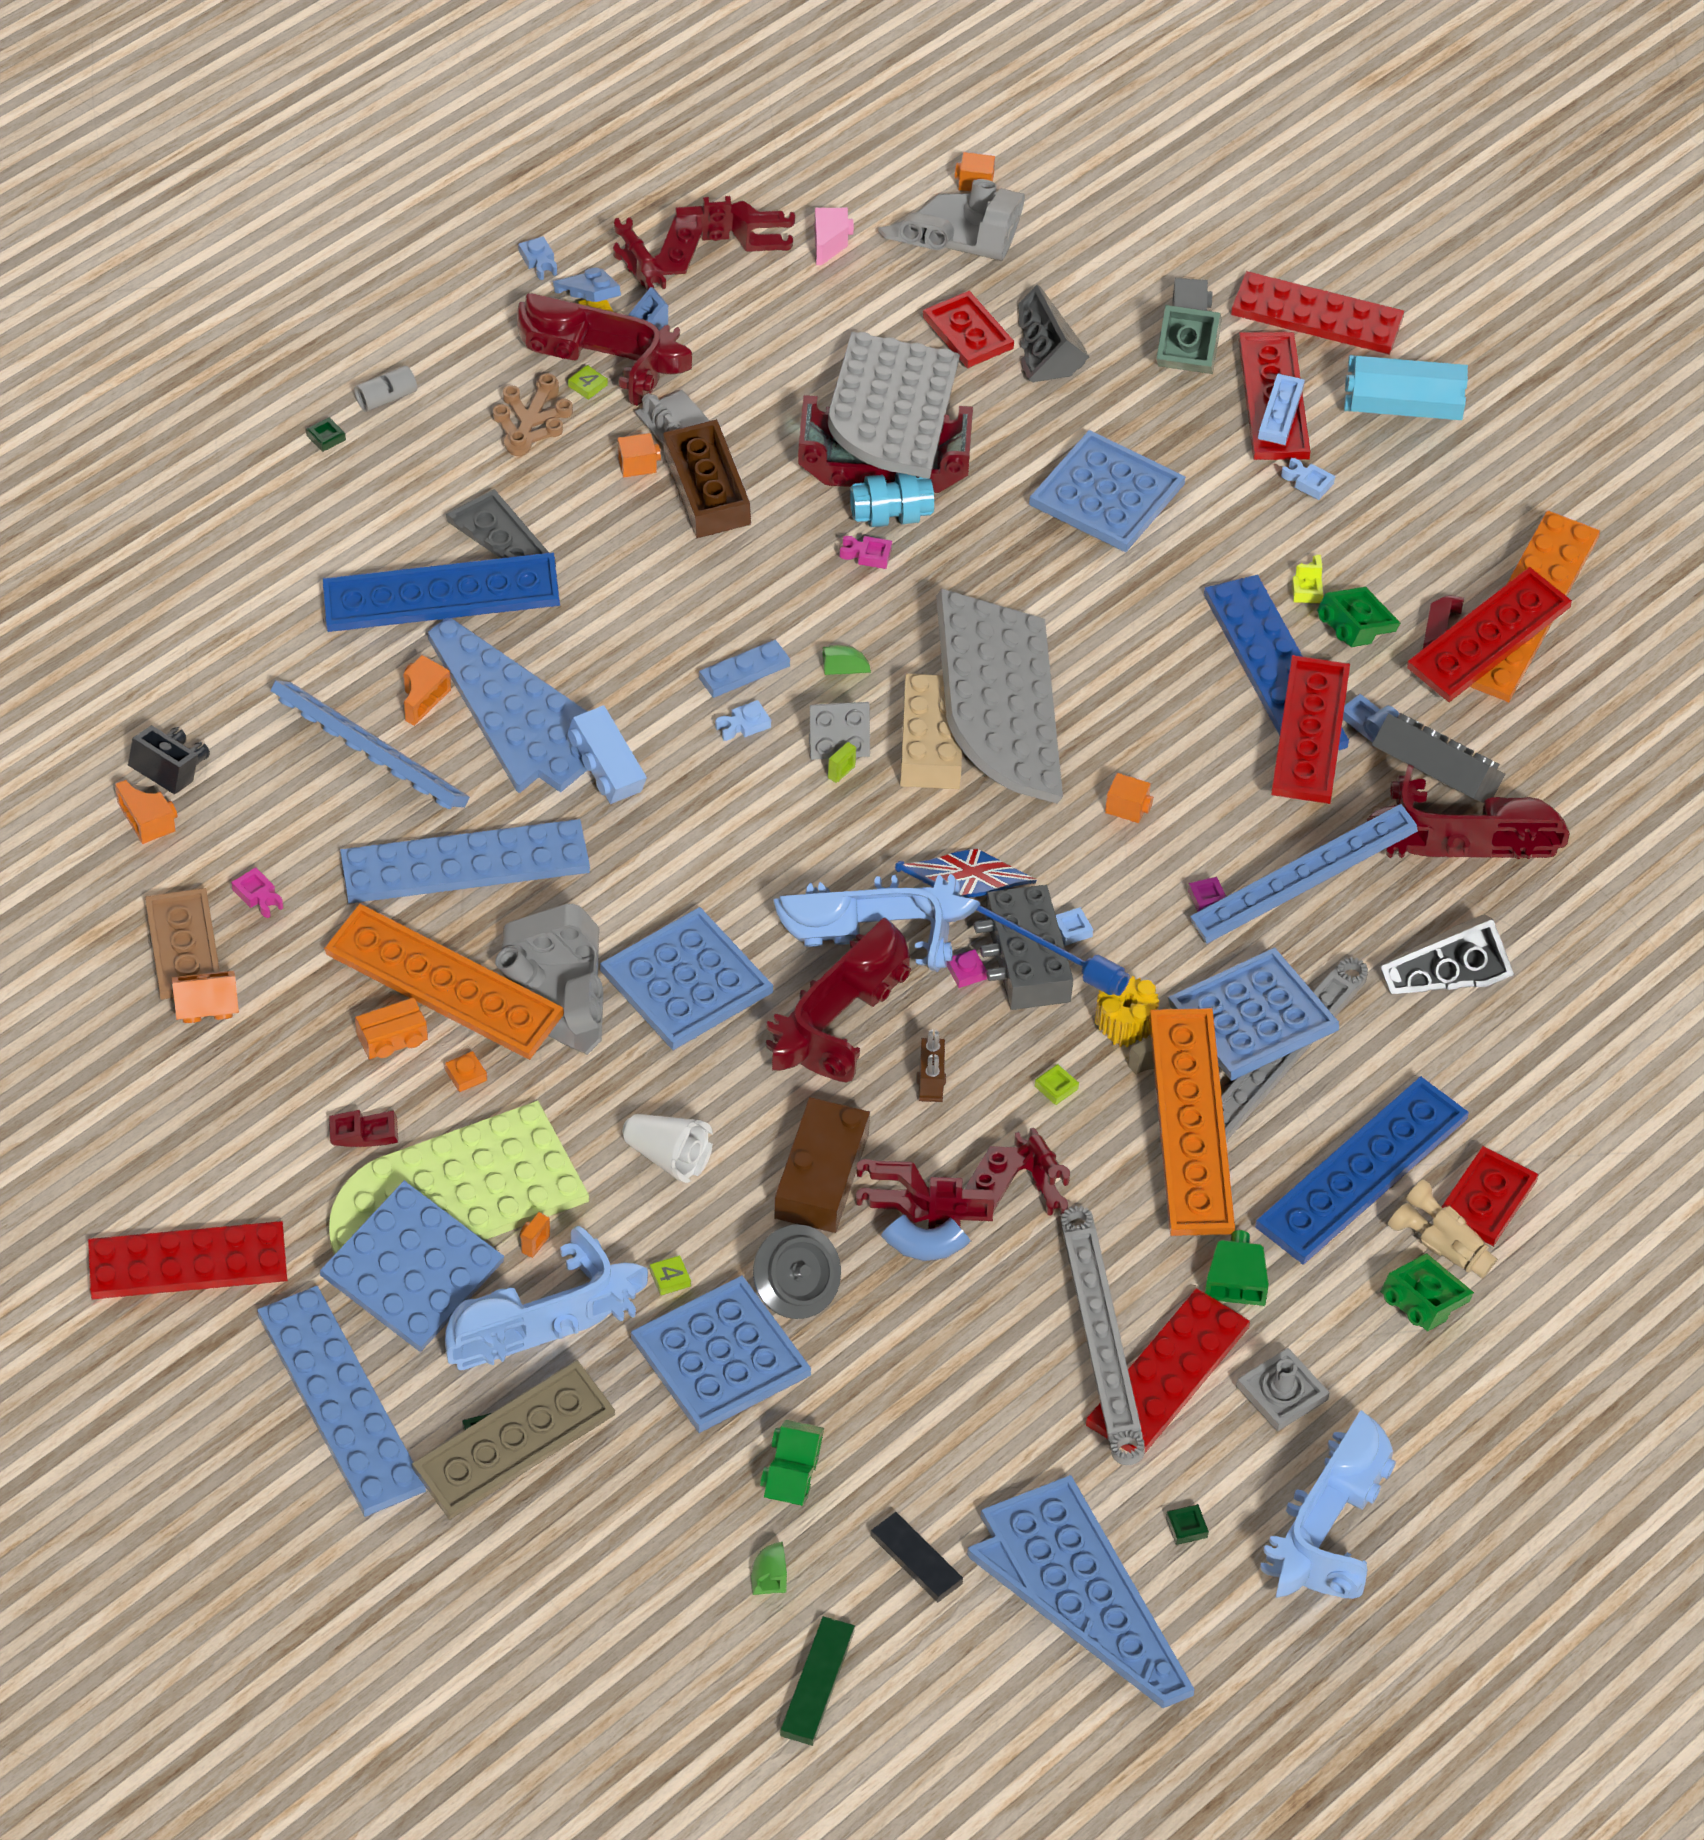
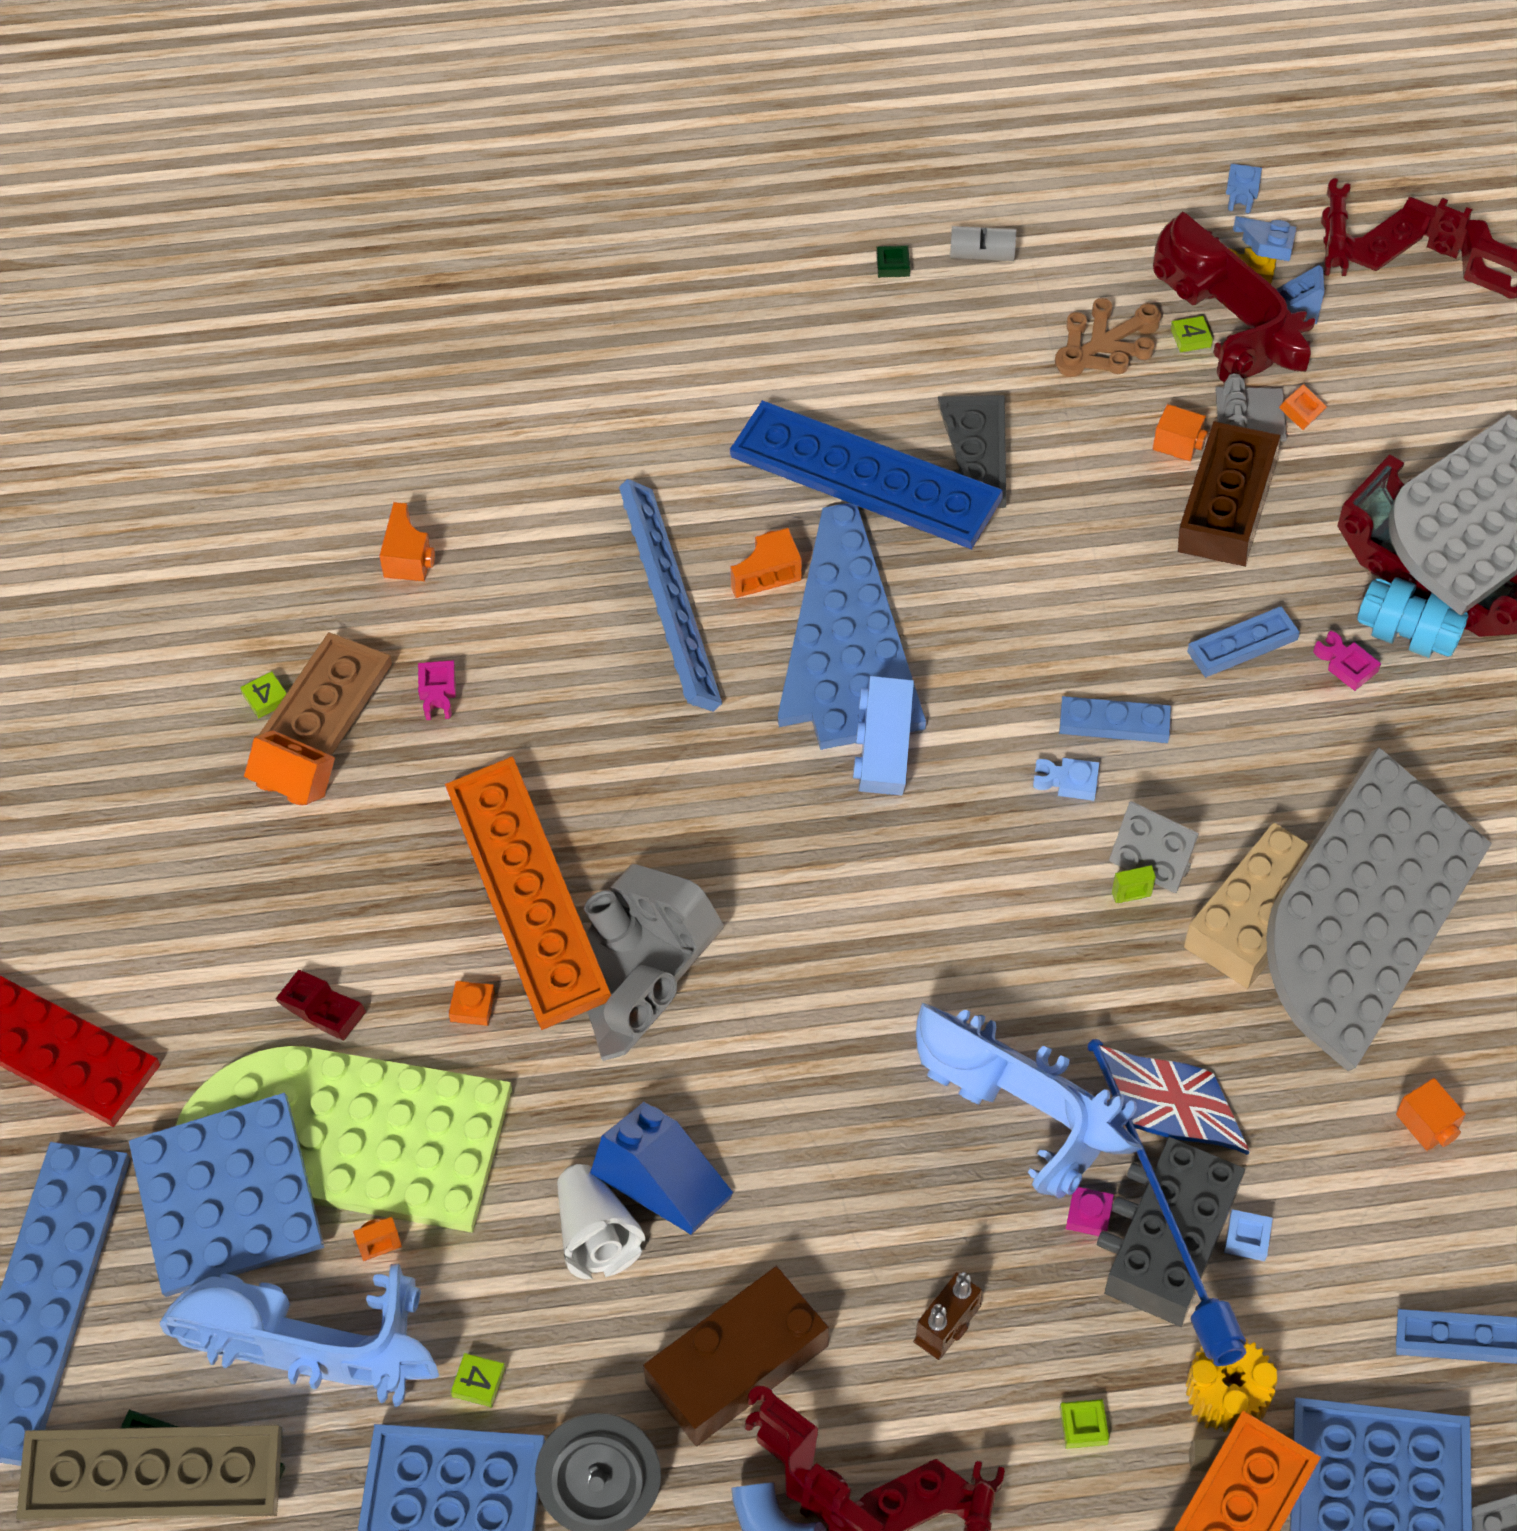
camera: 40 degrees right, 5 degrees up
(132, 964) = (263, 694): none -> lime tile
(165, 757) = (462, 502): black brick -> none
(391, 1029) = (434, 911): orange brick -> none
(464, 861) = (664, 770): medium blue plate -> none
(684, 1088) = (660, 1168): none -> blue slope
(686, 978) = (774, 1037): medium blue plate -> none
(708, 395) = (1302, 407): none -> orange plate
(790, 573) = (1243, 641): none -> medium blue plate
(844, 660) = (1227, 769): bright green brick -> none
(864, 972) = (959, 1150): dark red piece -> none
(1205, 892) = (1440, 1291): magenta plate -> none

